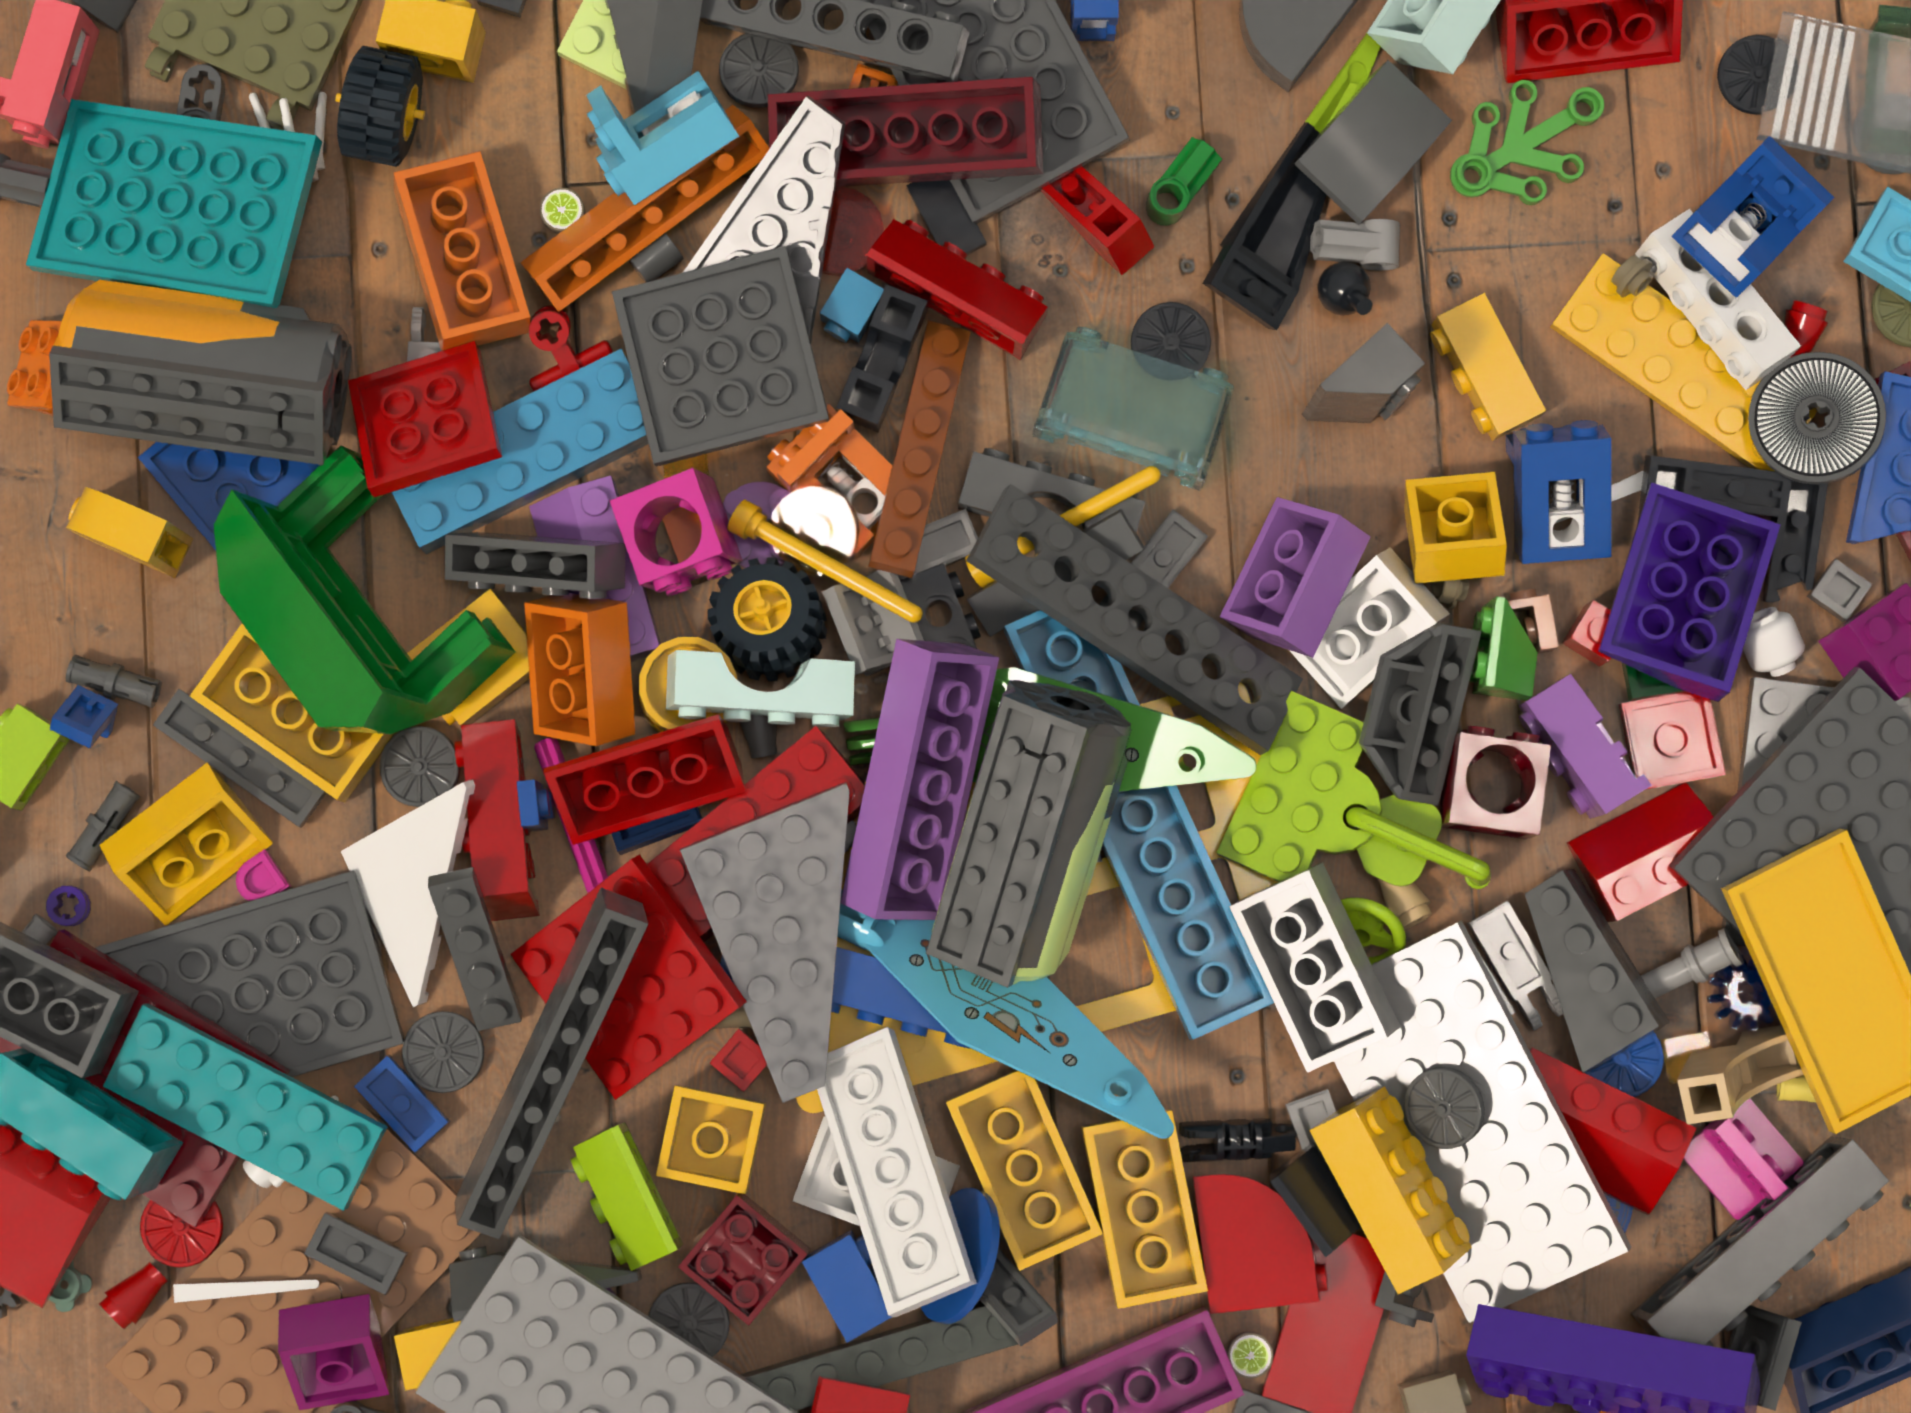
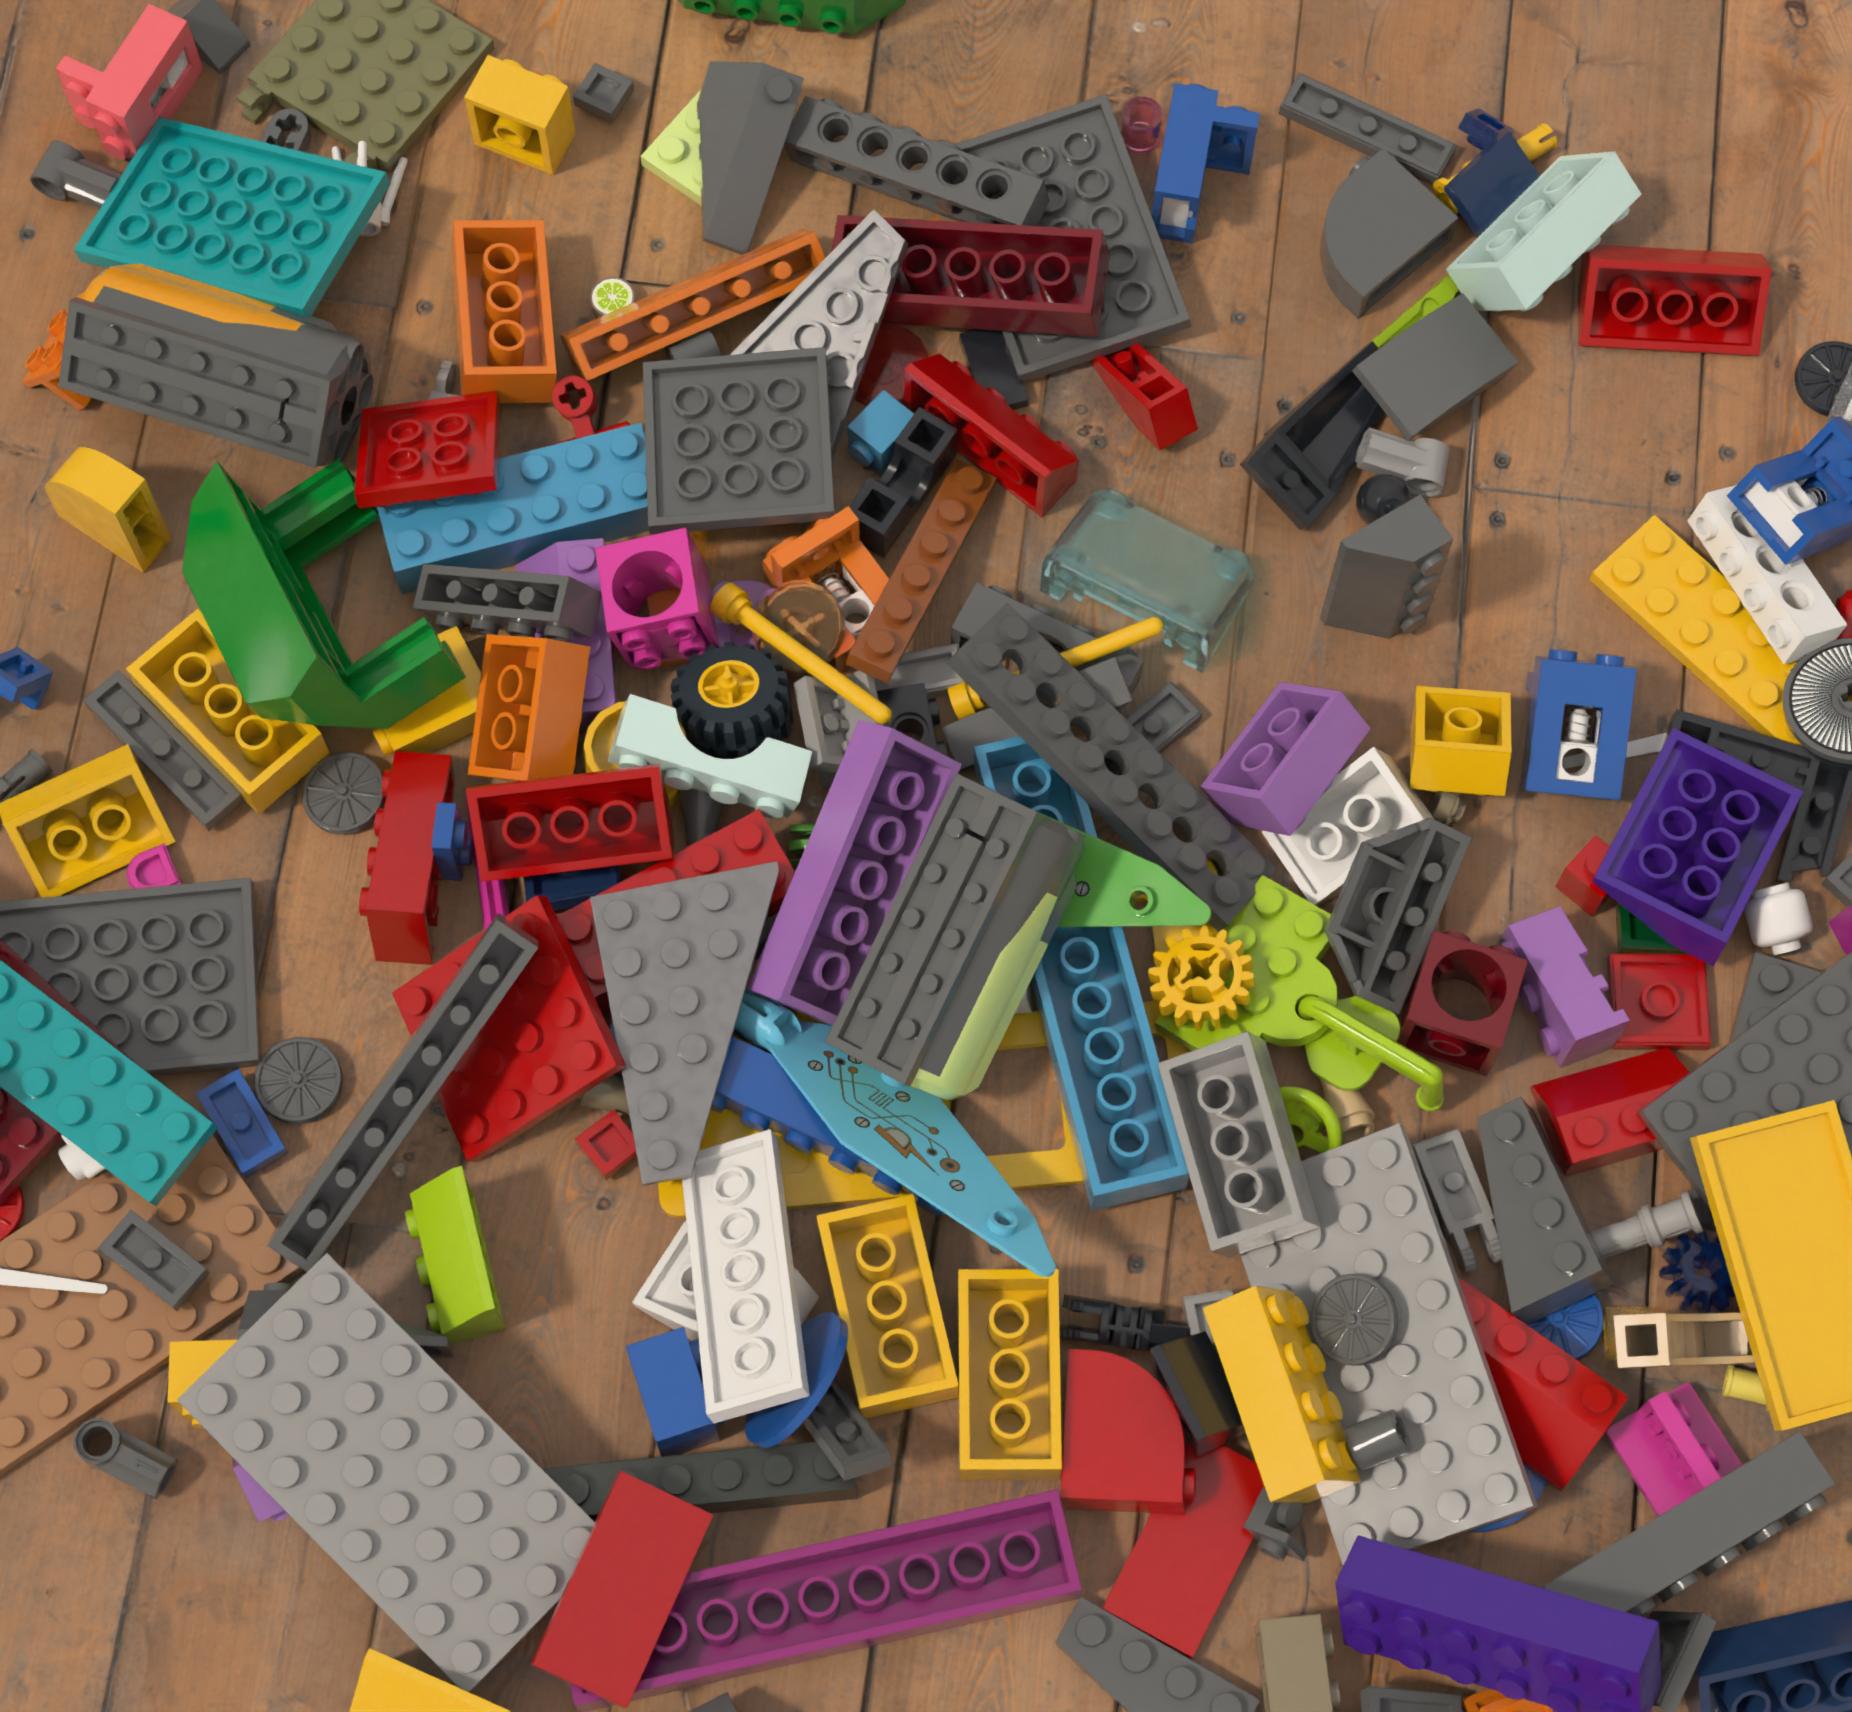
camera: 15 degrees right, 15 degrees down
(113, 681) = (56, 654): dark grey pin -> none
(204, 477) = (183, 460): blue plate -> none
(333, 1352) = (102, 1359): magenta slope -> none
(379, 106) = (454, 163): black wheel -> none
(394, 881) = (303, 896): white tile -> none
(475, 948) = (355, 968): dark grey plate -> none
(659, 138) = (723, 239): medium azure brick -> none
(693, 1316) = (505, 1399): dark grey wheel -> none
(711, 1139) = (558, 1214): yellow brick -> none
(744, 1258) = (565, 1342): dark red brick -> none
(756, 68) = (826, 198): dark grey wheel -> none
(1173, 335) = (1204, 513): black wheel -> none
(1183, 180) = (1235, 375): green piece -> none
(1240, 828) = (1198, 997): none -> yellow gear
(1250, 1355) = (1097, 1562): tile -> none
(1482, 1214) = (1377, 1439): none -> dark grey piece
(1486, 368) = (1516, 598): yellow brick -> none
(1504, 655) = (1491, 876): bright green slope -> none
(1520, 146) = (1587, 404): bright green plant -> none
(1540, 620) = (1533, 851): bracket -> none
(1632, 276) = (1681, 533): dark tan plate -> none

